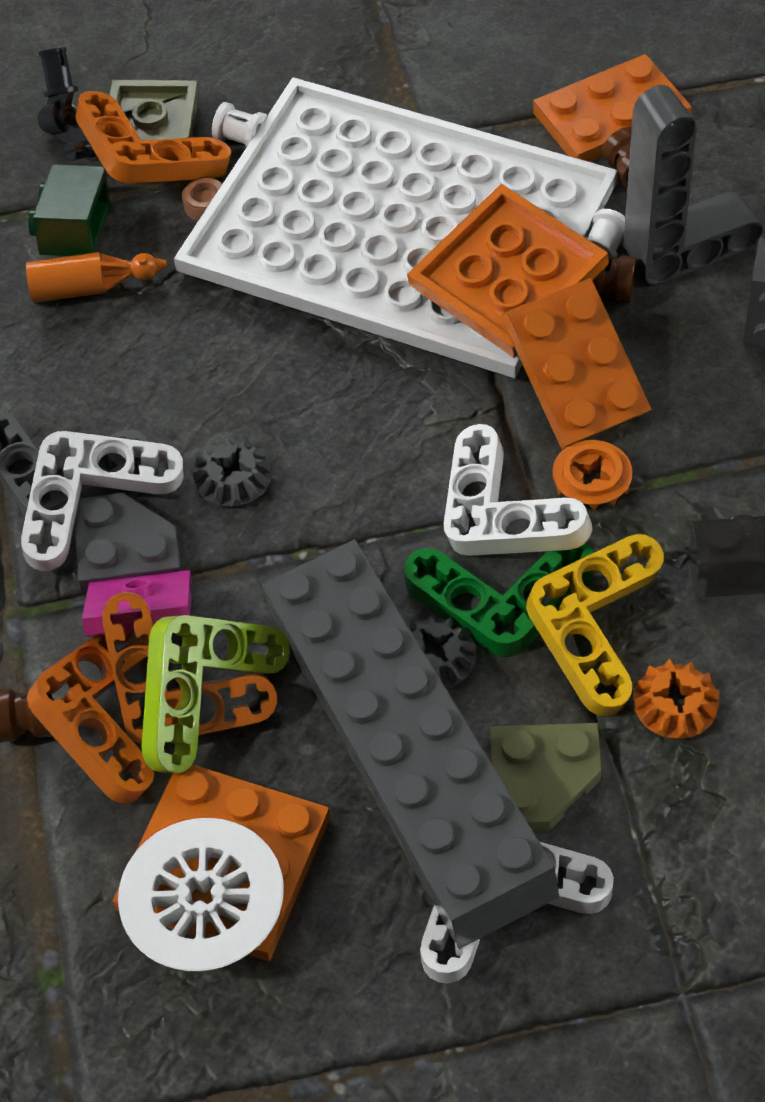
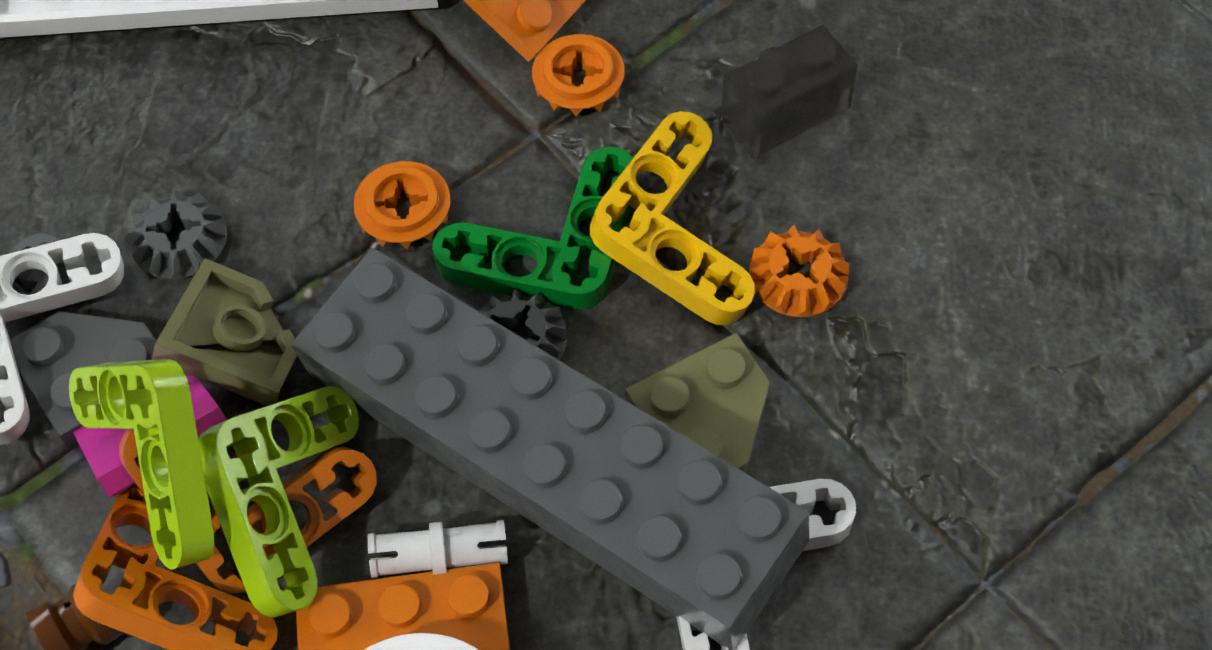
camera: 30 degrees left, 5 degrees up
(138, 579) = (158, 405): none -> lime beam
(227, 559) = (229, 335): none -> olive plate
(291, 777) = (437, 548): none -> white pin
(393, 504) = (379, 197): none -> orange gear
(494, 516) = (502, 162): white beam -> none

